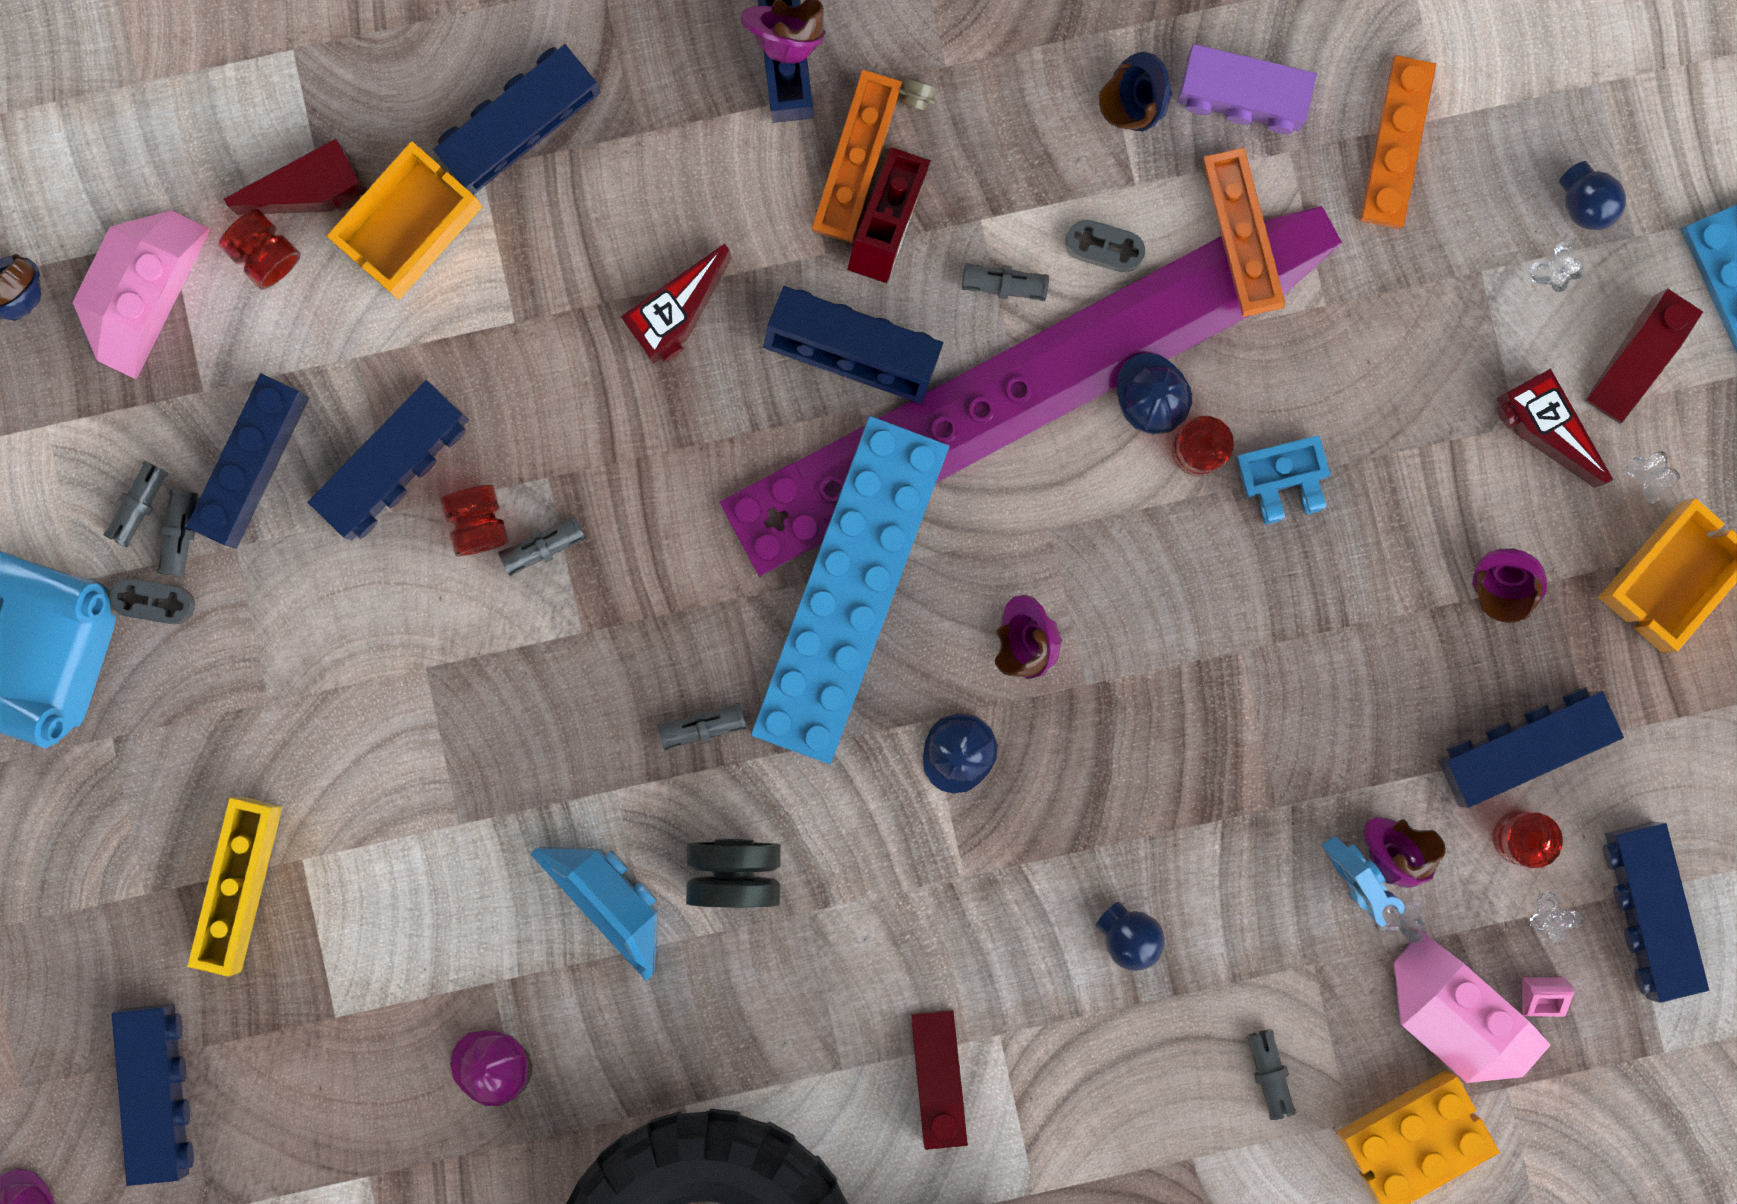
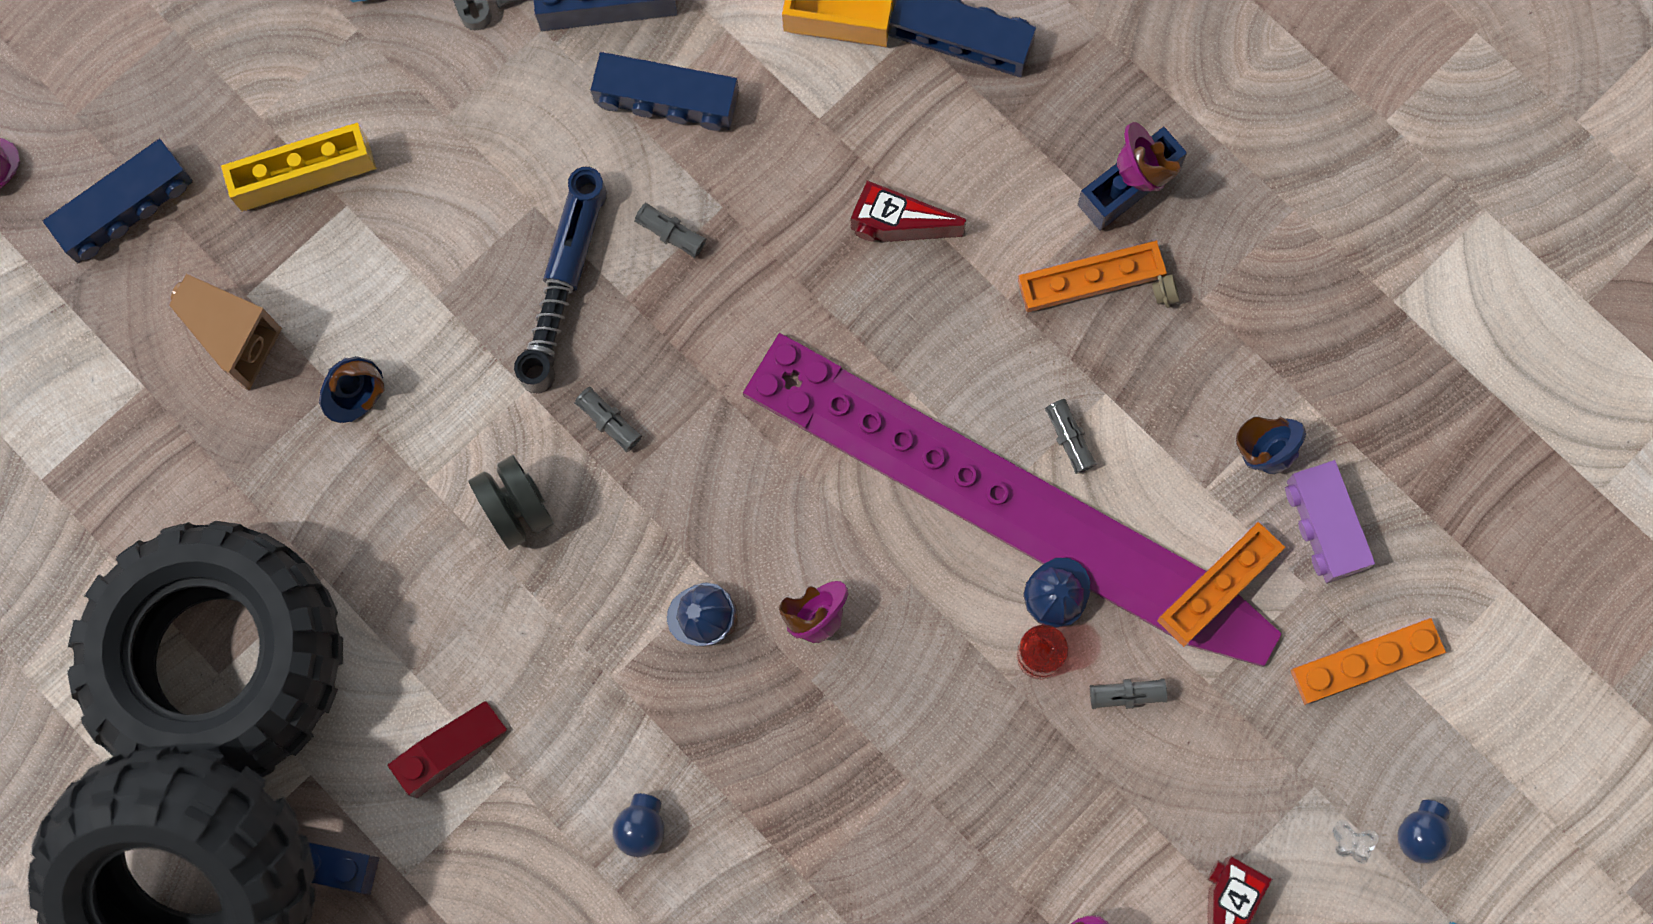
camera: 65 degrees right, 10 degrees down
(366, 1061) = (227, 326): none -> medium nougat slope
(474, 520) = (658, 172): clear red wheel -> none
(490, 1067) = (271, 423): magenta piece -> none
(510, 967) = (350, 389): none -> dark blue piece
(521, 682) = (562, 275): none -> piece
(608, 899) = (440, 431): dark azure wedge -> none
(849, 590) = (772, 461): dark azure plate -> none
(852, 344) = (953, 354): dark blue brick -> none
(888, 215) = (1062, 323): dark red slope -> none
(1101, 255) = (1153, 490): dark grey beam -> none
(1284, 467) = (1065, 724): dark azure plate -> none
(1290, 389) = (1128, 693): none -> dark grey pin

